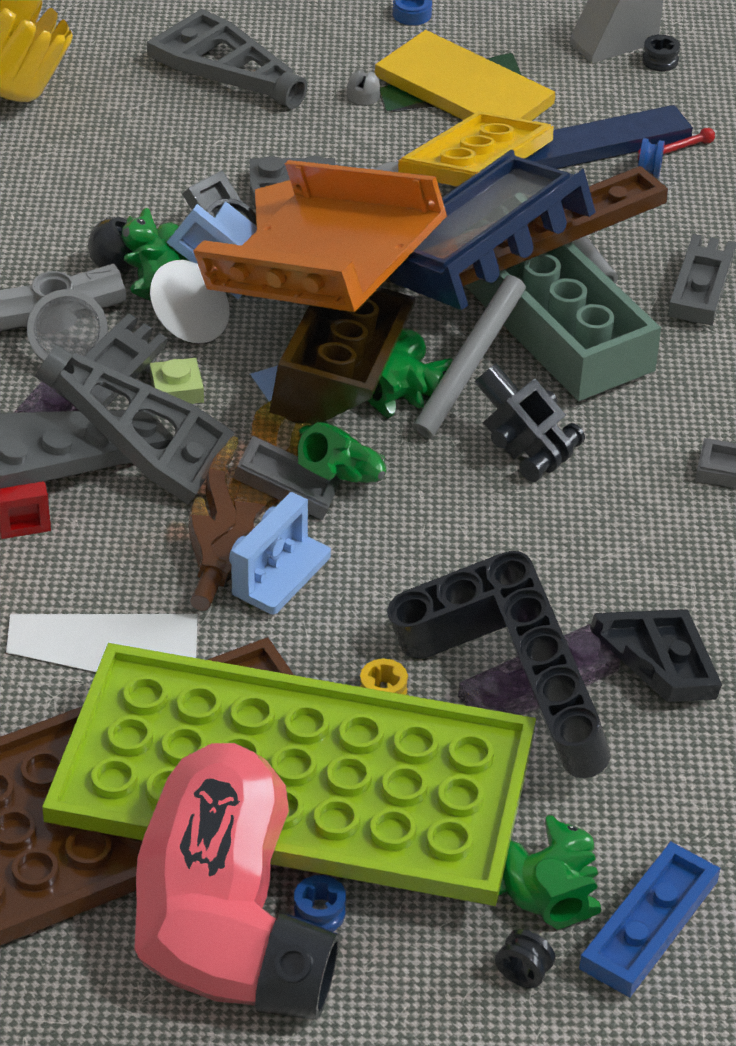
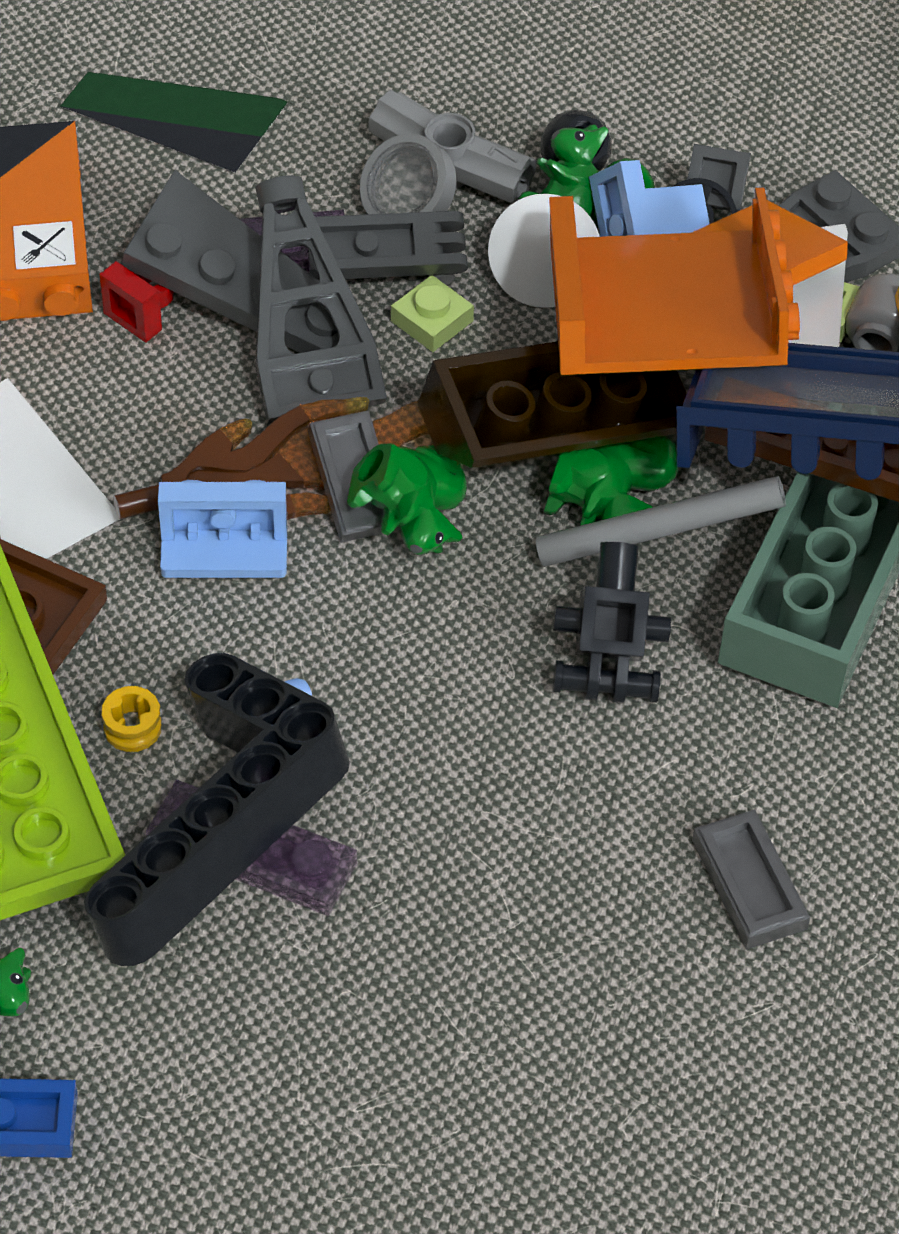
camera: 55 degrees right, 10 degrees up
(662, 651) = (362, 937): black wing -> none

